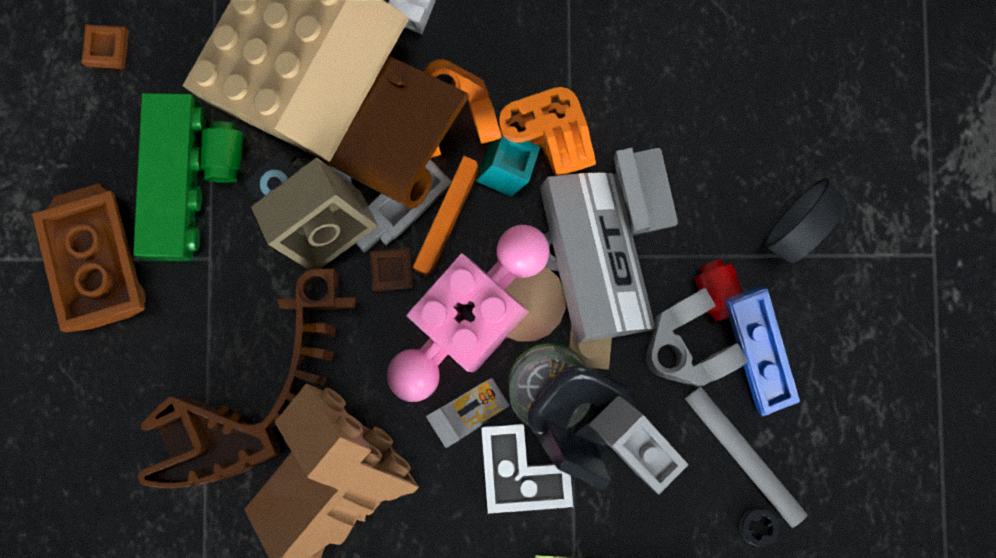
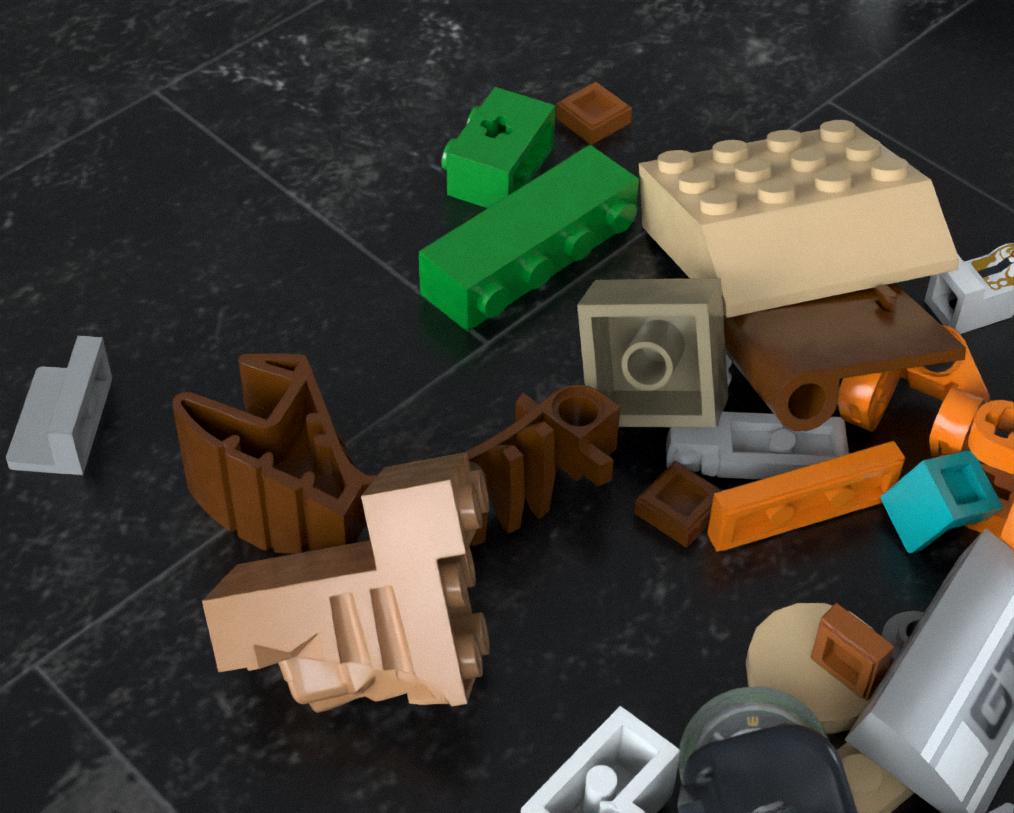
camera: 40 degrees right, 35 degrees down
(61, 505) = (62, 412): none -> light grey panel
(88, 260) = (361, 239): dark orange slope -> none
(106, 145) = (499, 147): none -> green brick
(221, 152) = (612, 253): green brick -> none
(415, 372) = (733, 597): bright pink brick -> none
(467, 412) = (587, 696): light grey leg -> none
(541, 294) = (851, 651): none -> dark orange tile

